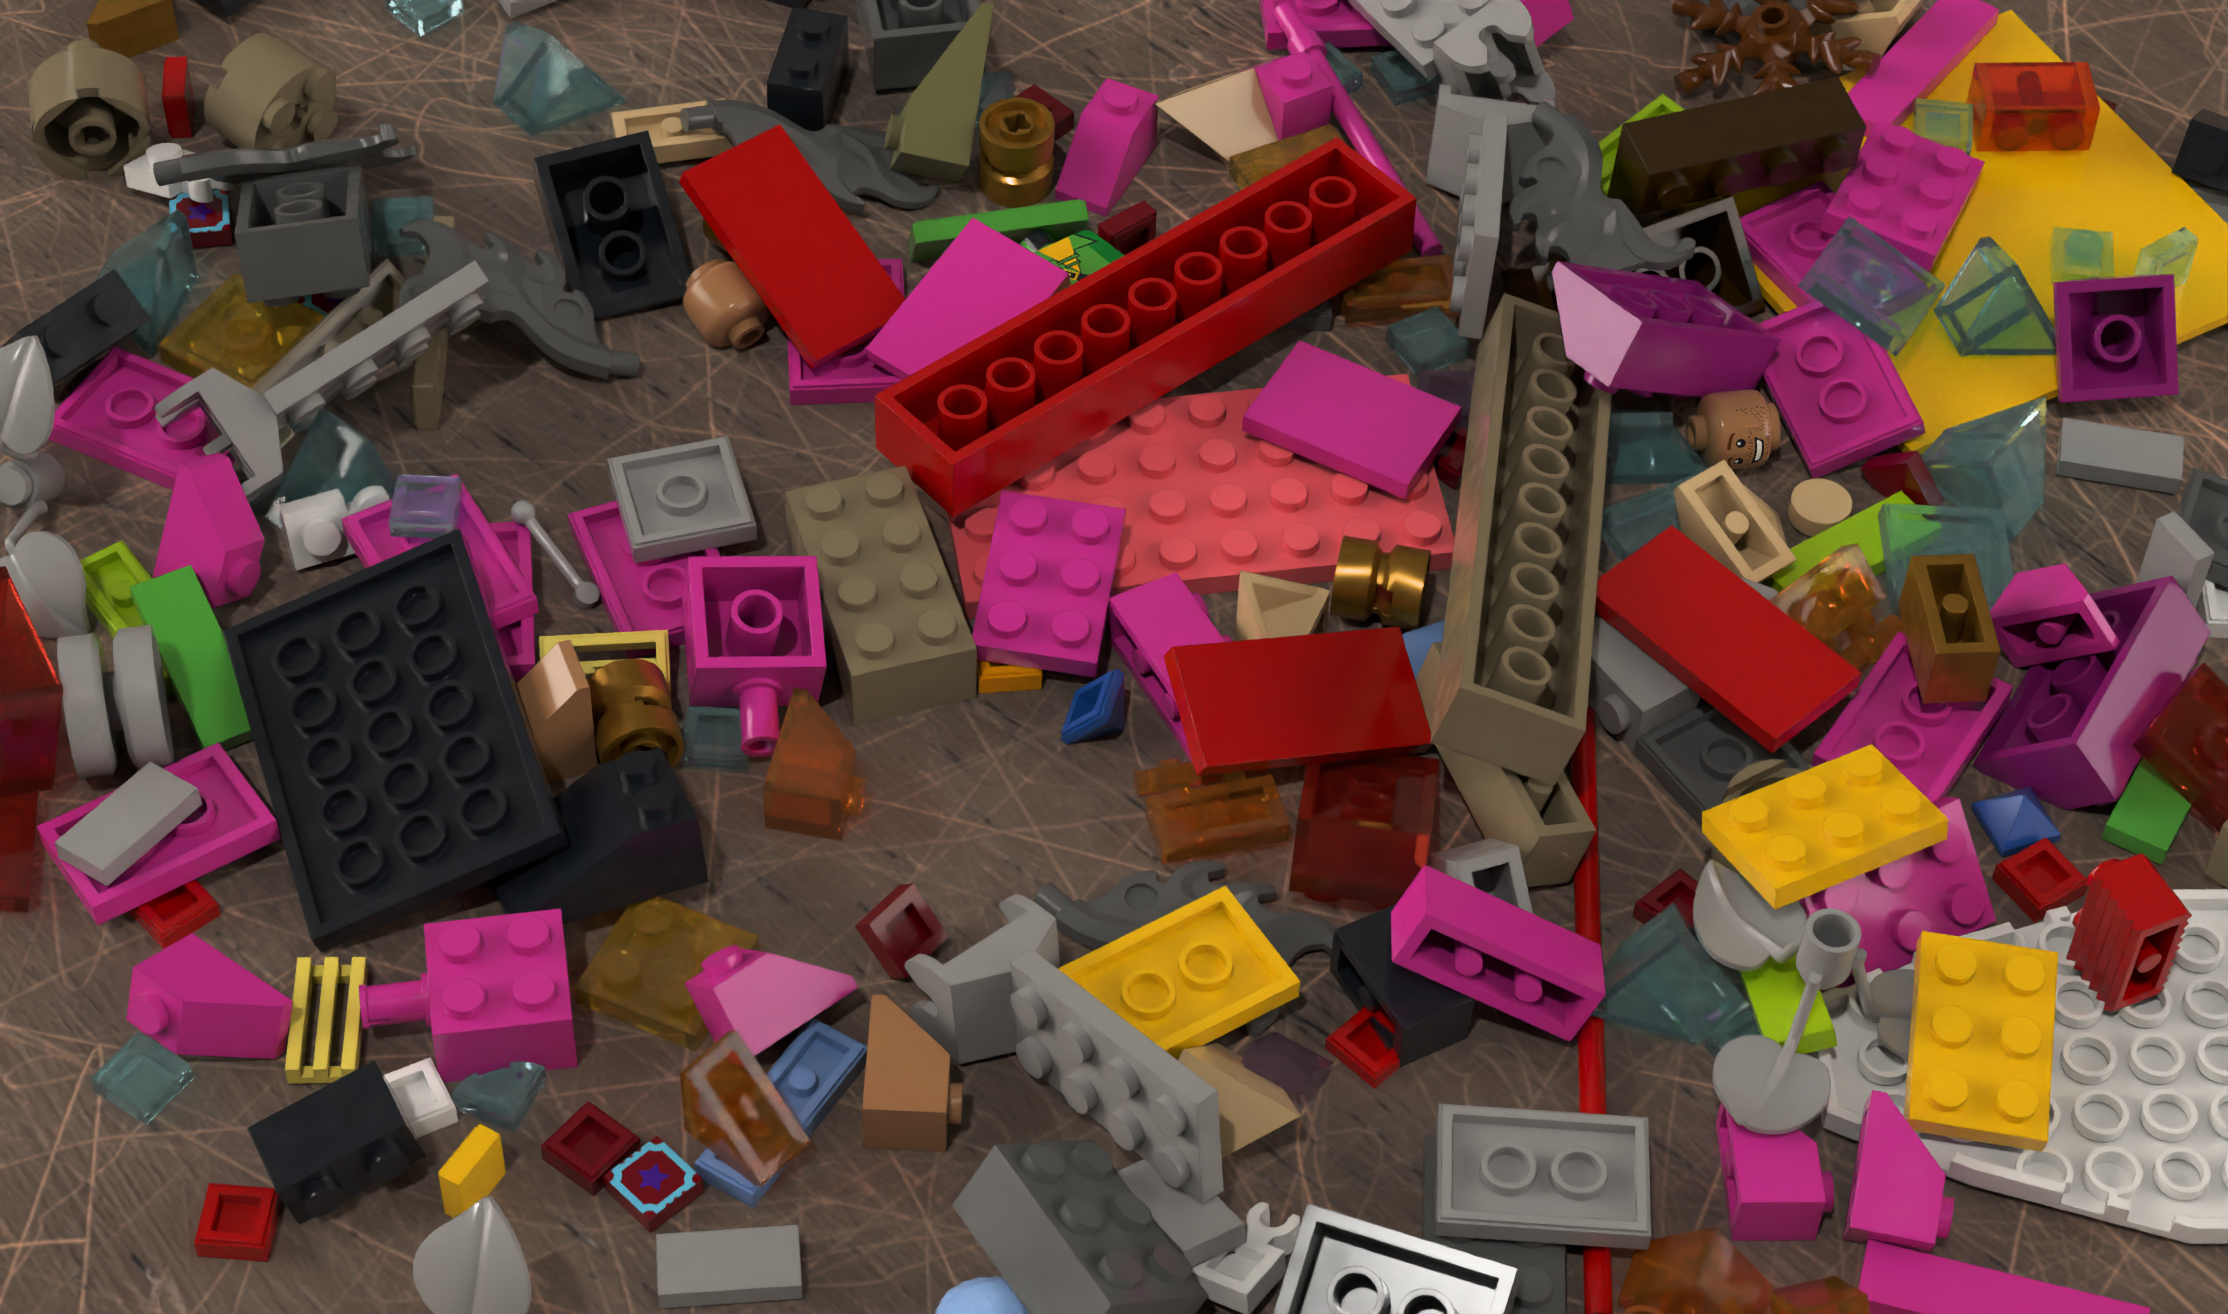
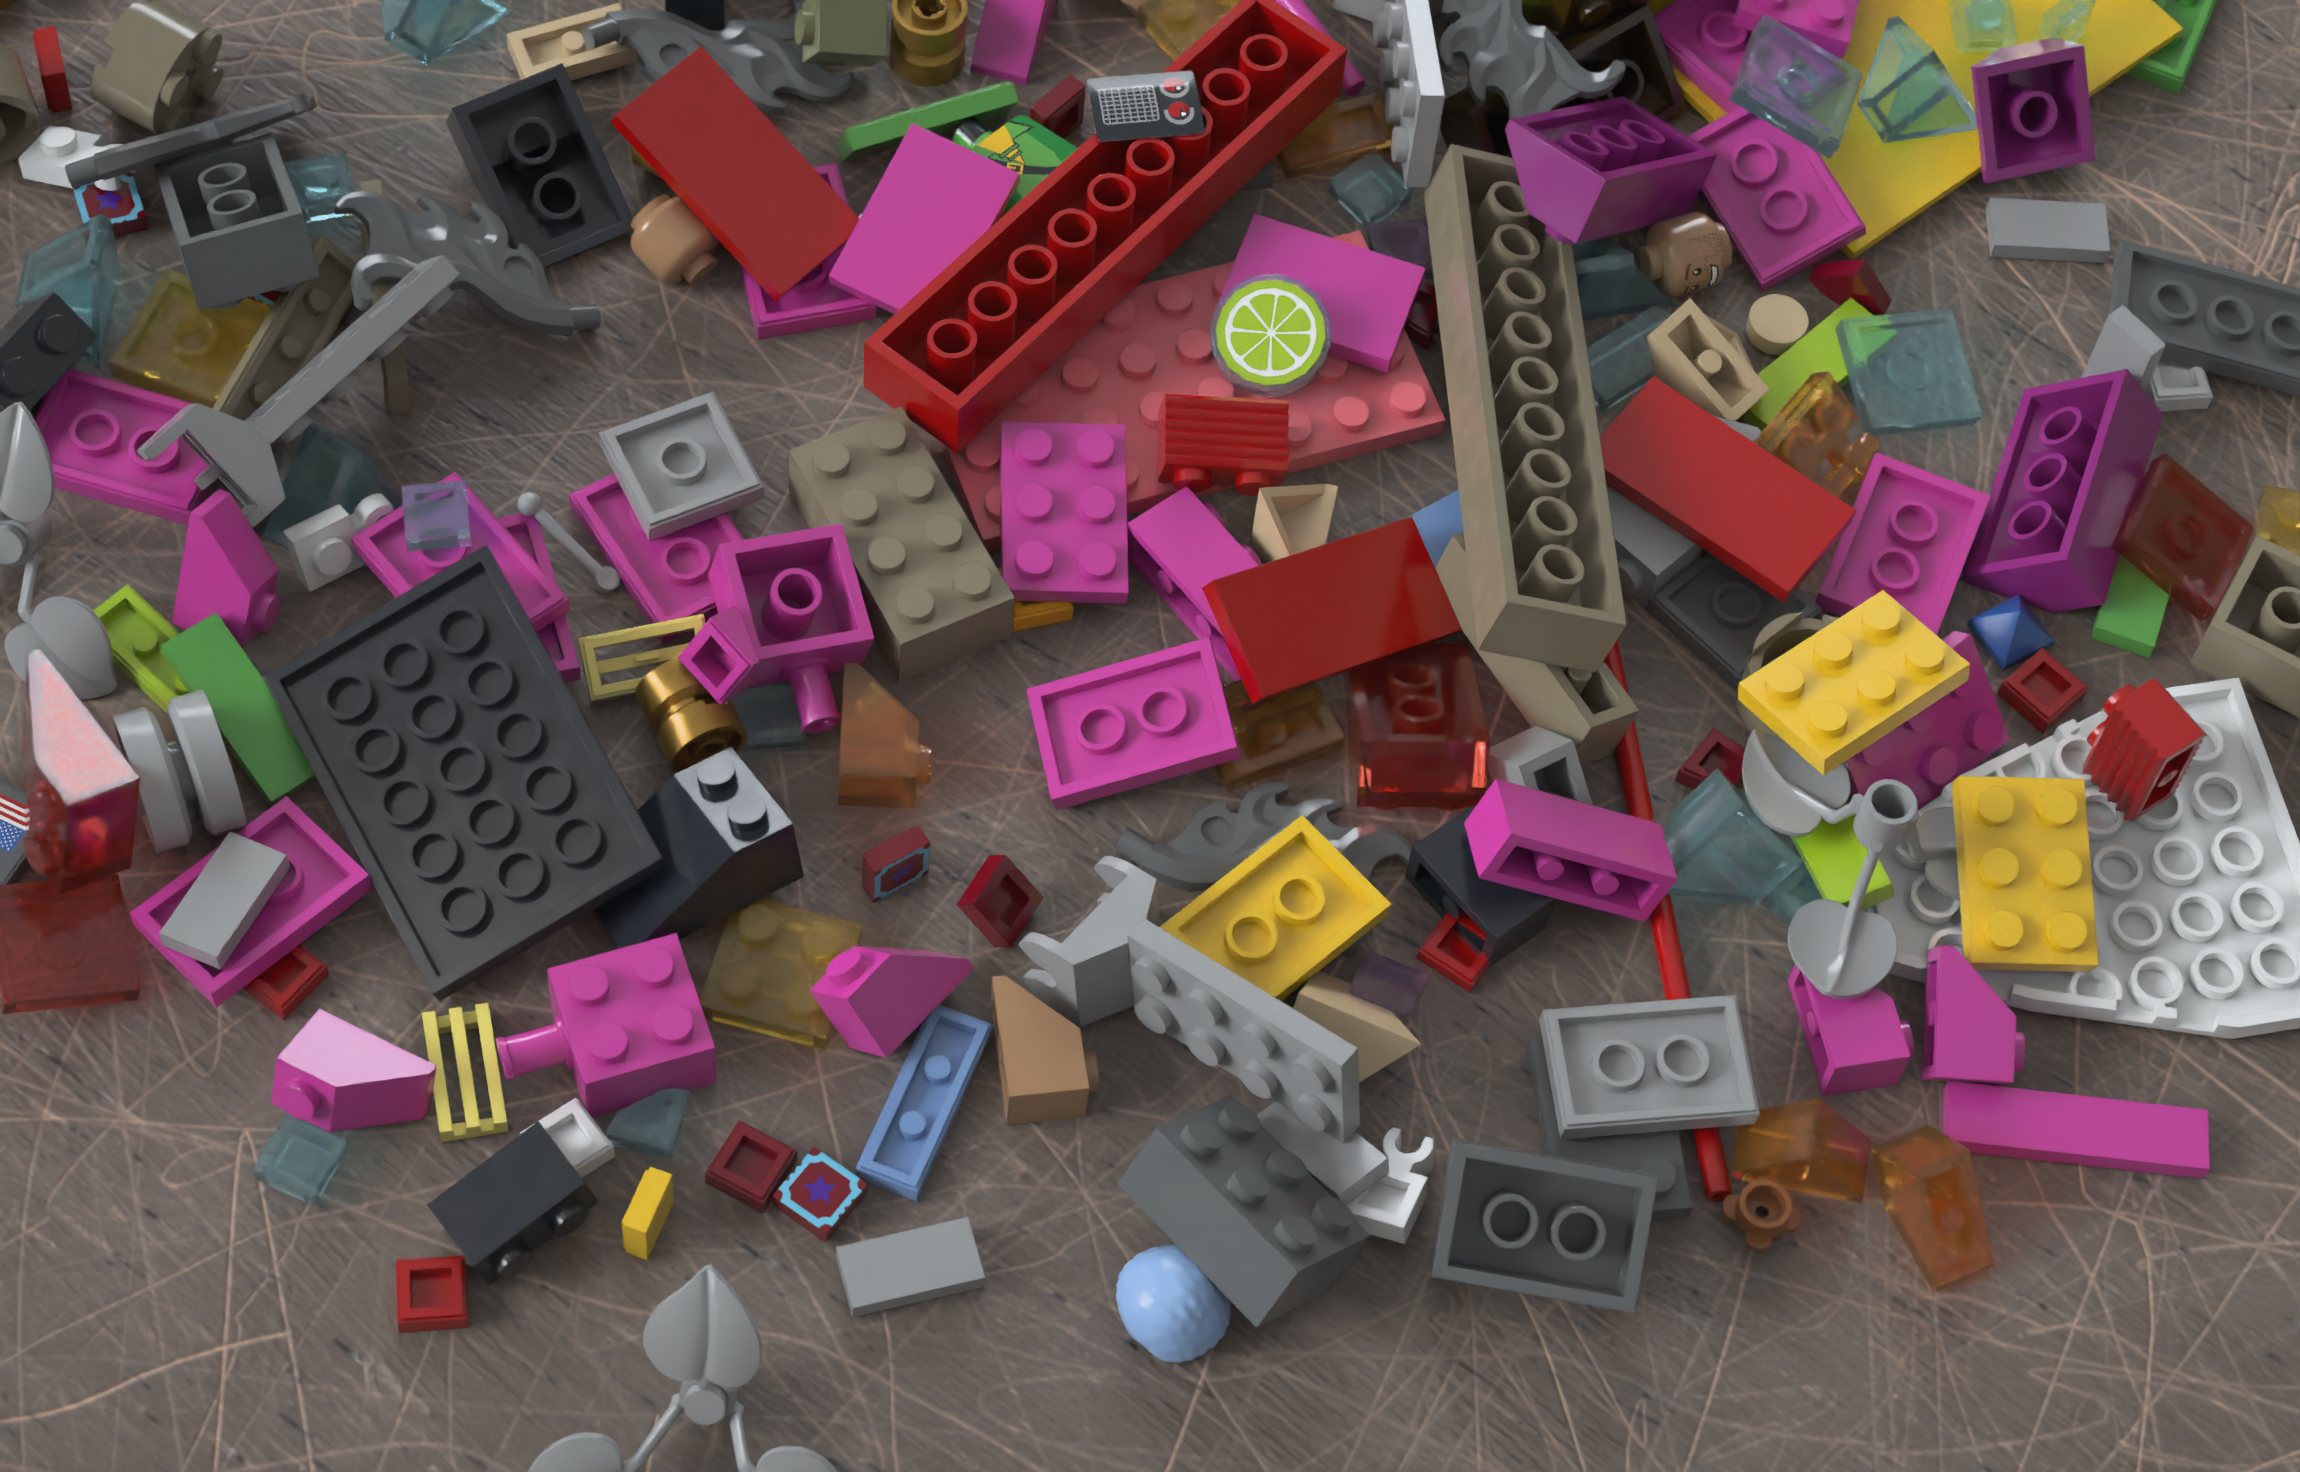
camera: 15 degrees left, 10 degrees up
(560, 713) = (624, 718): medium nougat slope -> none
(668, 659) = (722, 655): none -> dark pink slope
(739, 1111) = (895, 1118): clear orange slope -> none
(804, 882) = (895, 863): none -> dark red tile
(1074, 783) = (1133, 723): none -> dark pink plate
(1096, 709) = (1132, 632): blue slope -> none
(1203, 224) = (1145, 106): none -> black sticker
(1218, 534) = (1222, 442): none -> red brick
(1290, 447) = (1270, 335): none -> tile
(1380, 582) = (1381, 466): pearl gold wheel -> none
(1948, 628) = (1929, 452): pearl gold brick -> none
(1994, 463) = (1934, 258): clear light blue slope -> none
(2049, 618) = (2015, 422): dark pink slope -> none

